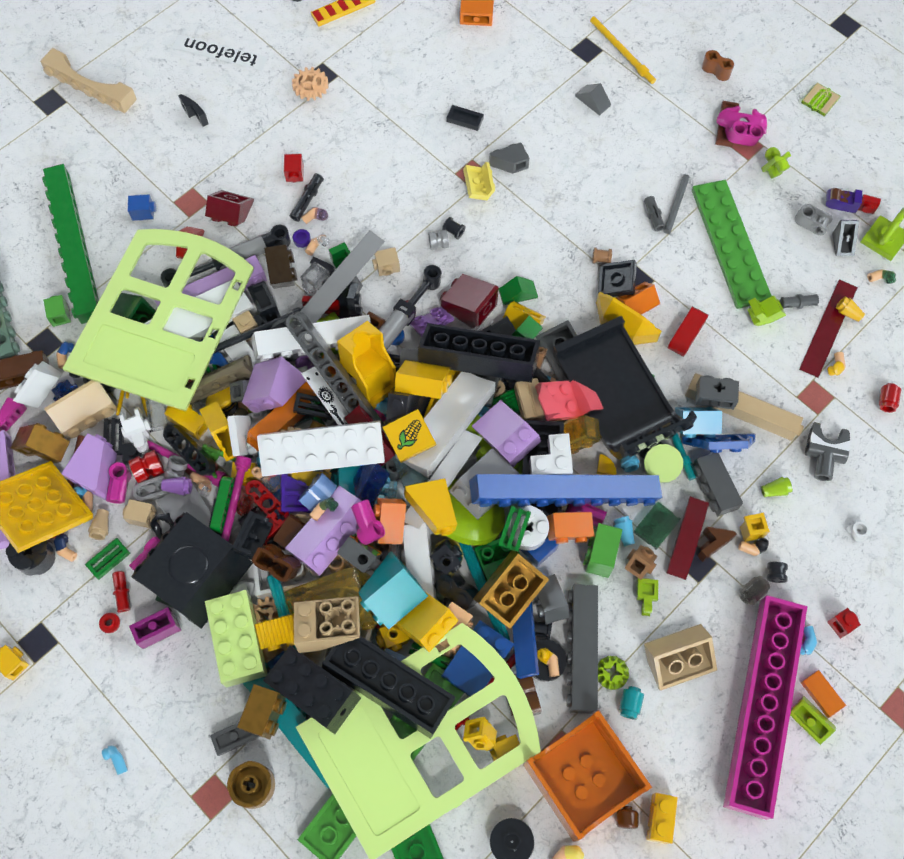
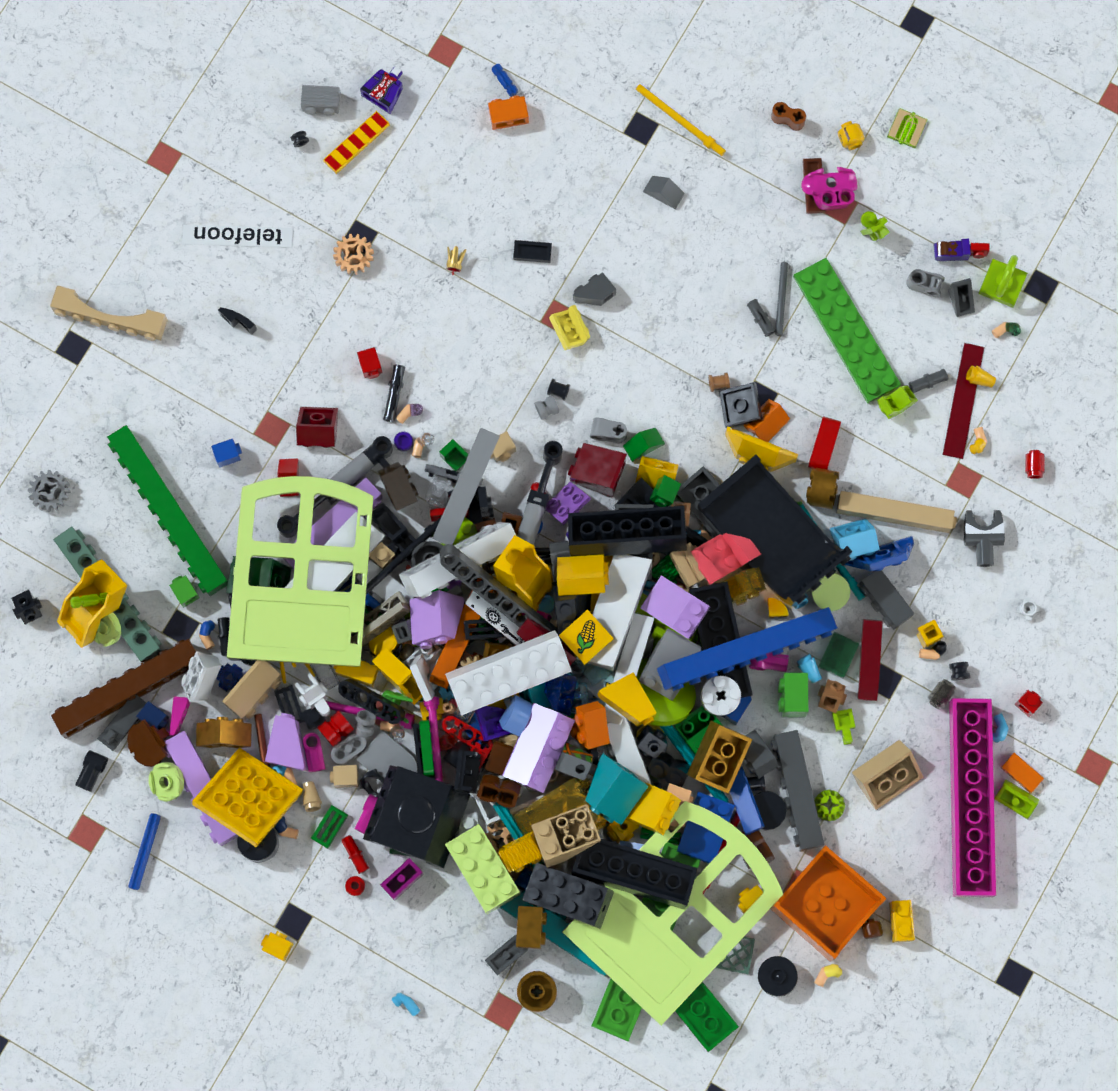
camera: 15 degrees left, 10 degrees up
(178, 485) = (374, 740): medium lavender cone -> none
(321, 507) = (527, 727): arm -> none
(369, 527) = (577, 738): dark pink piece -> none
(392, 110) = (453, 262): none -> pearl gold piece
(467, 819) = (732, 968): none -> sand green window
(481, 739) = (729, 897): yellow brick -> none
(489, 271) = (606, 430): none -> light grey piece
(519, 512) = (710, 695): green tile -> none
(550, 660) = (770, 809): arm -> none
(559, 458) = (732, 625): white brick -> none
(570, 526) = (758, 683): orange brick -> none
(631, 702) = (852, 828): teal brick -> none
(677, 367) = (823, 488): none -> pearl gold brick
(717, 392) = (877, 512): dark grey brick -> none
(717, 539) = (899, 653): reddish brown slope -> none
(770, 91) = (851, 135): none -> yellow head
(778, 487) = (943, 587): lime cone -> none

